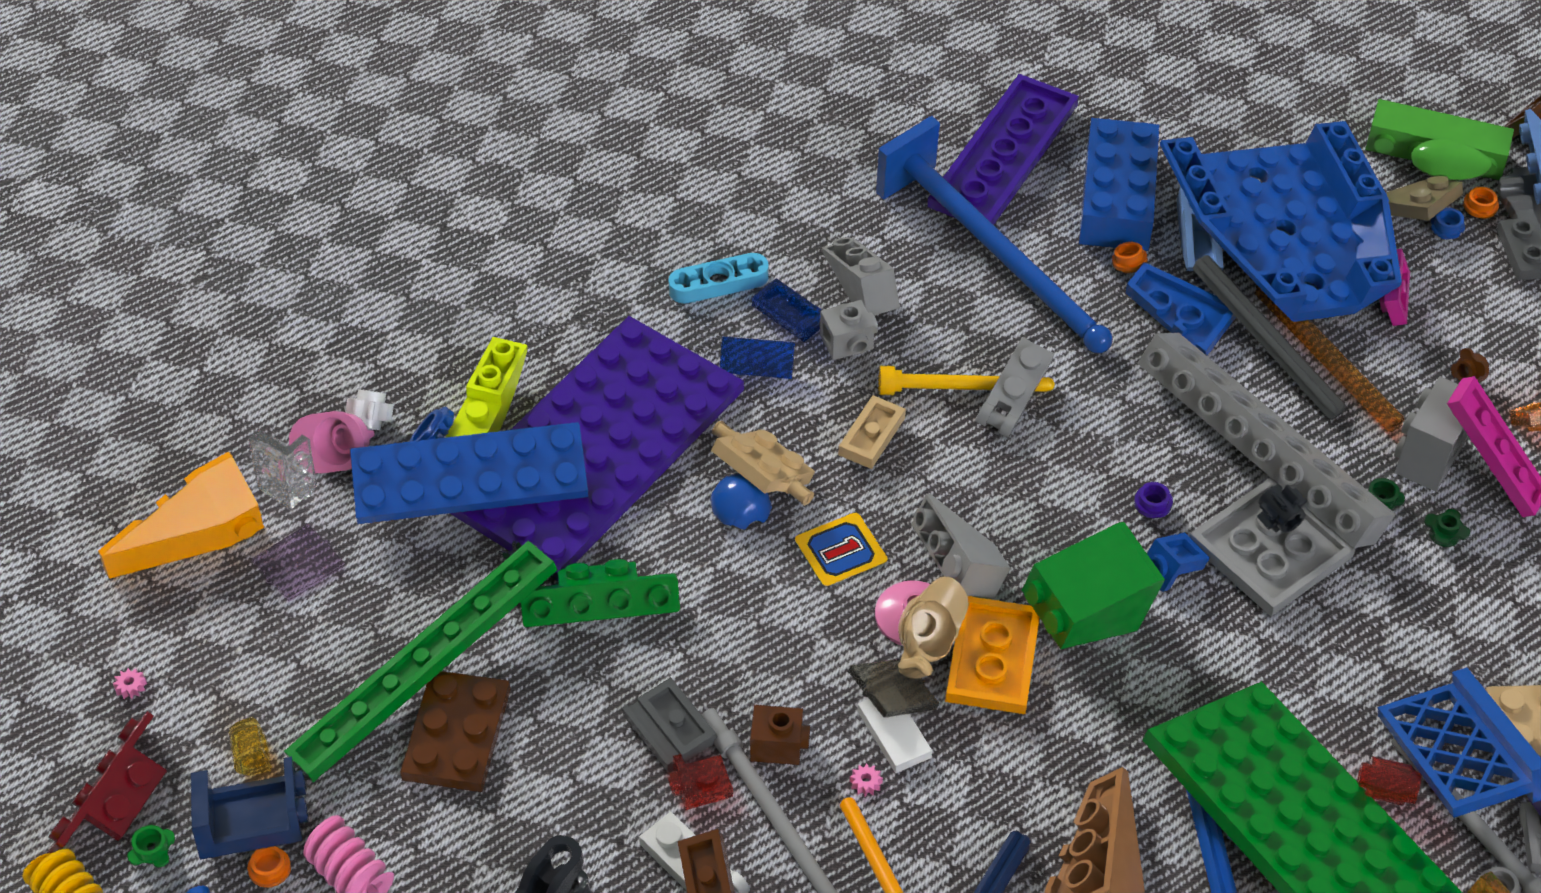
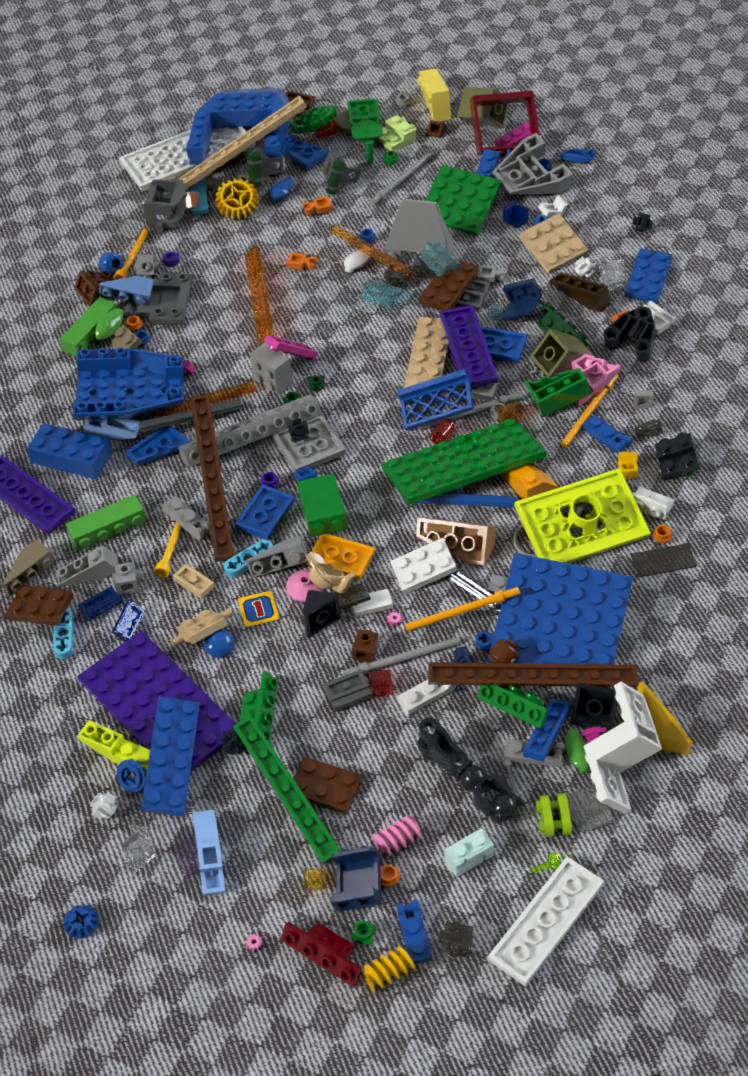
camera: 75 degrees left, 0 degrees up
(156, 448) = (76, 930): none -> blue gear
(200, 518) = (158, 893): light orange wedge -> none
(291, 568) = (208, 852): none -> light blue slope
(331, 438) = (119, 823): bright pink piece -> none
(764, 229) = (39, 605): none -> reddish brown plate
(825, 630) = (320, 611): none -> black slope
(847, 193) = (29, 564): none -> dark tan slope
(914, 158) = (23, 529): blue piece -> none
(947, 492) = (242, 566): none -> medium azure beam
(971, 275) = (106, 522): none -> bright green brick
(1004, 804) = (423, 566): none -> white plate
(1065, 504) = (265, 512): none -> blue plate
(1107, 391) = (212, 478): none -> reddish brown plate
(1129, 257) = (118, 458): orange plate -> none
(1470, 365) = (233, 347): reddish brown plate -> none

